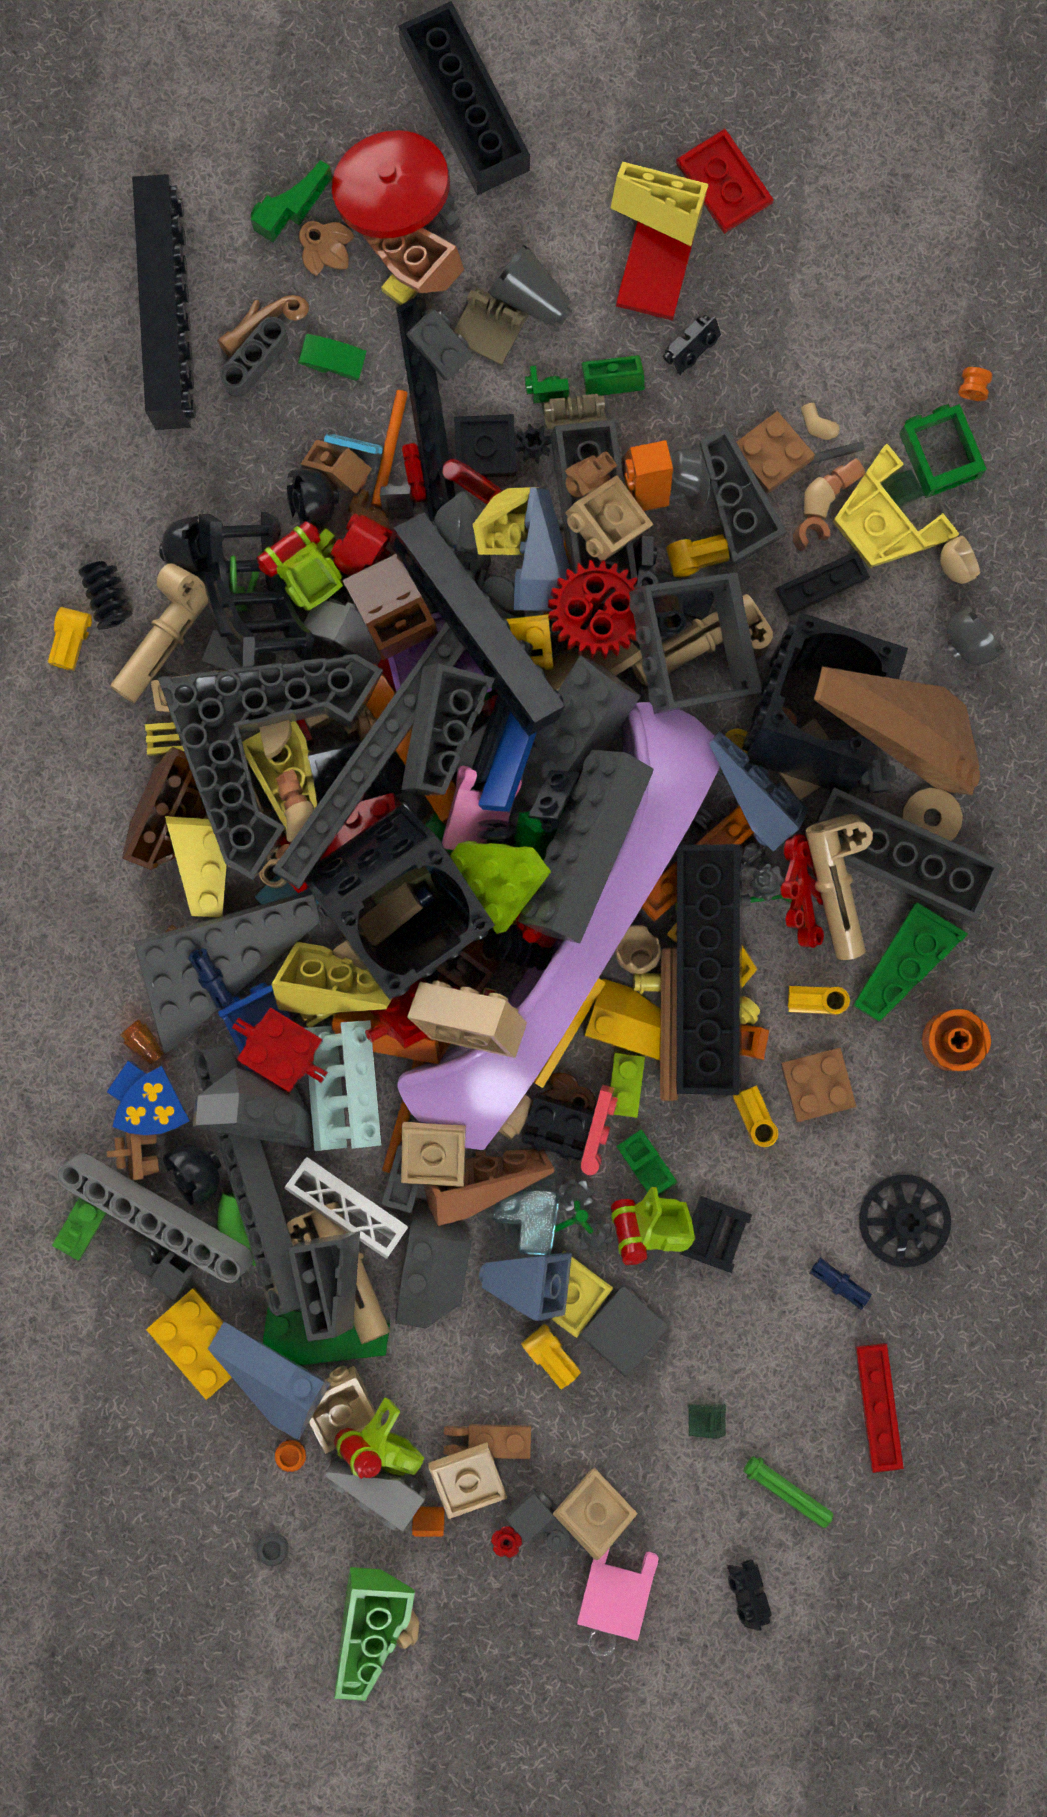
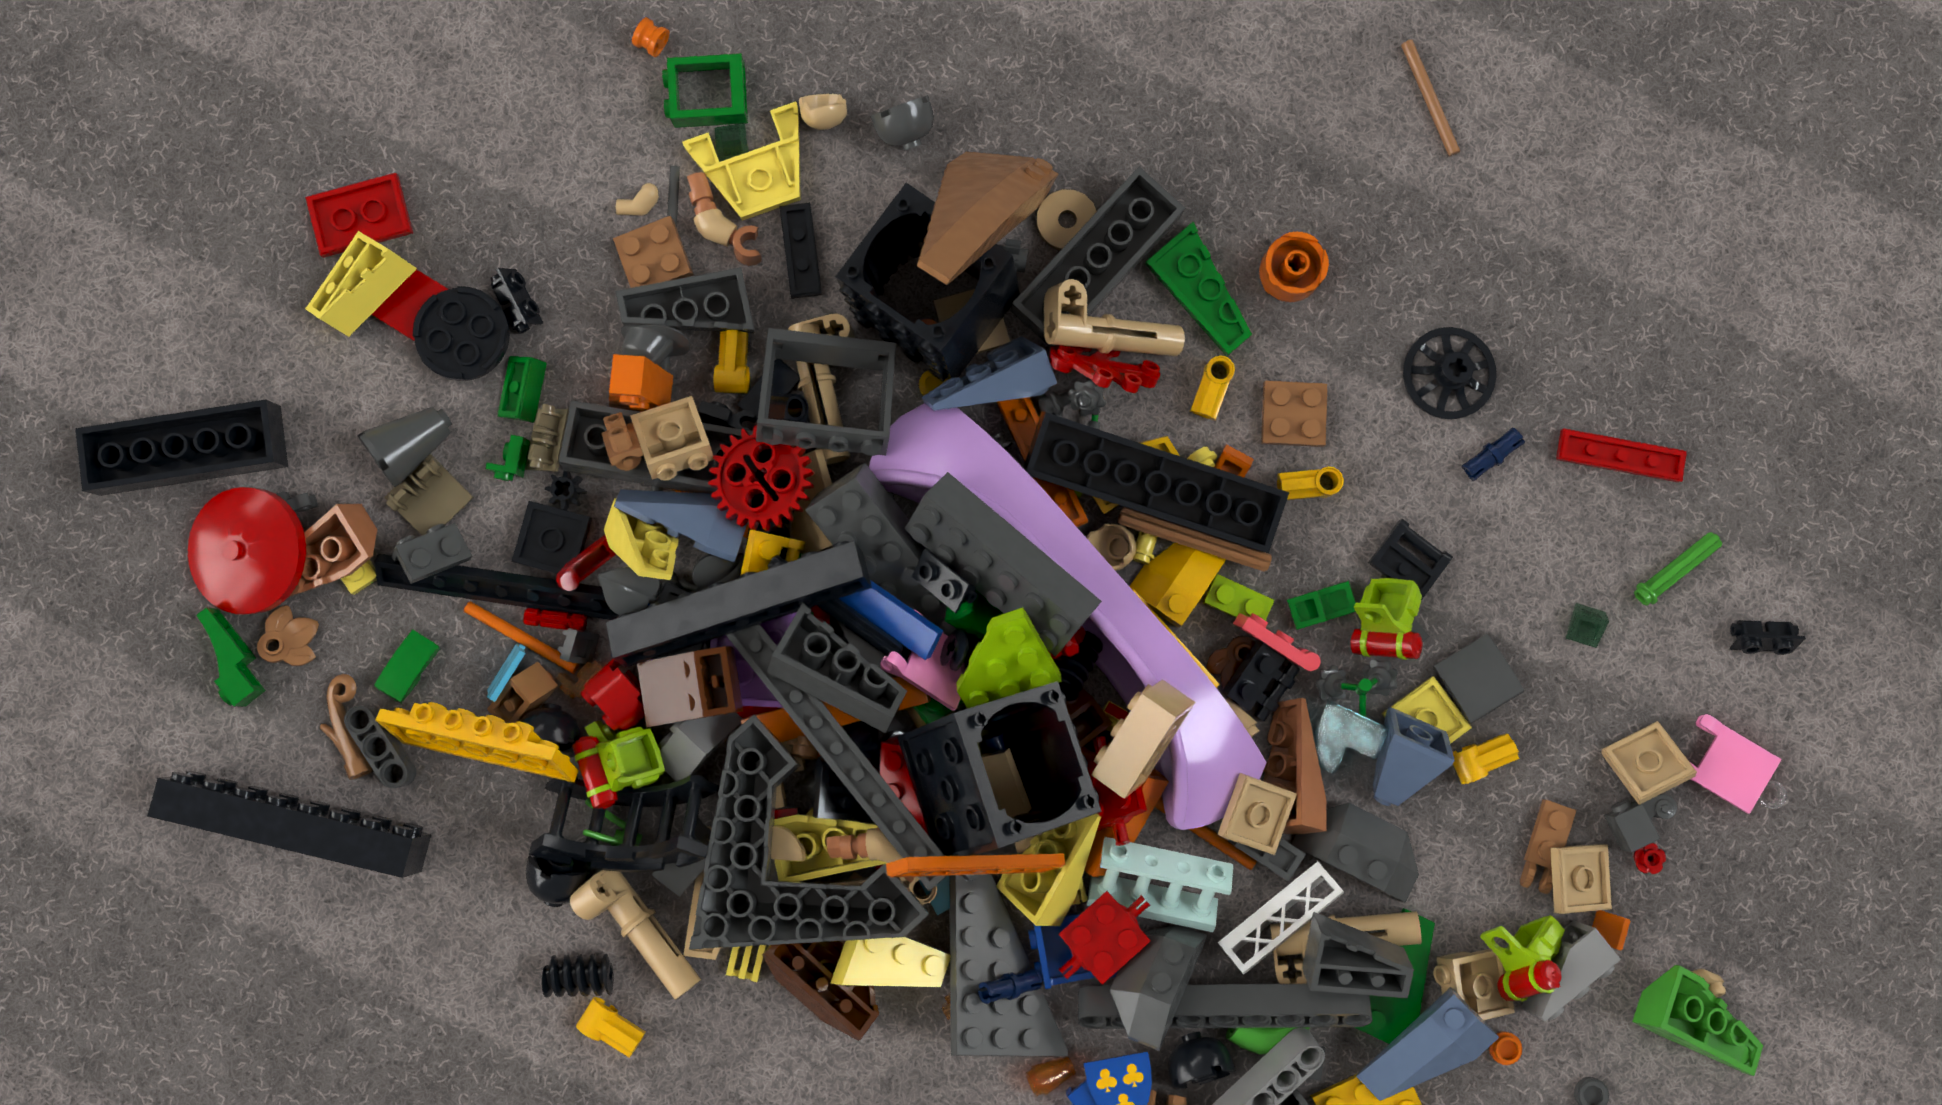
camera: 75 degrees left, 0 degrees up
(286, 437) = (477, 738): none -> yellow plate
(308, 904) = (974, 865): none -> orange tile
(645, 305) = (461, 333): none -> black tile

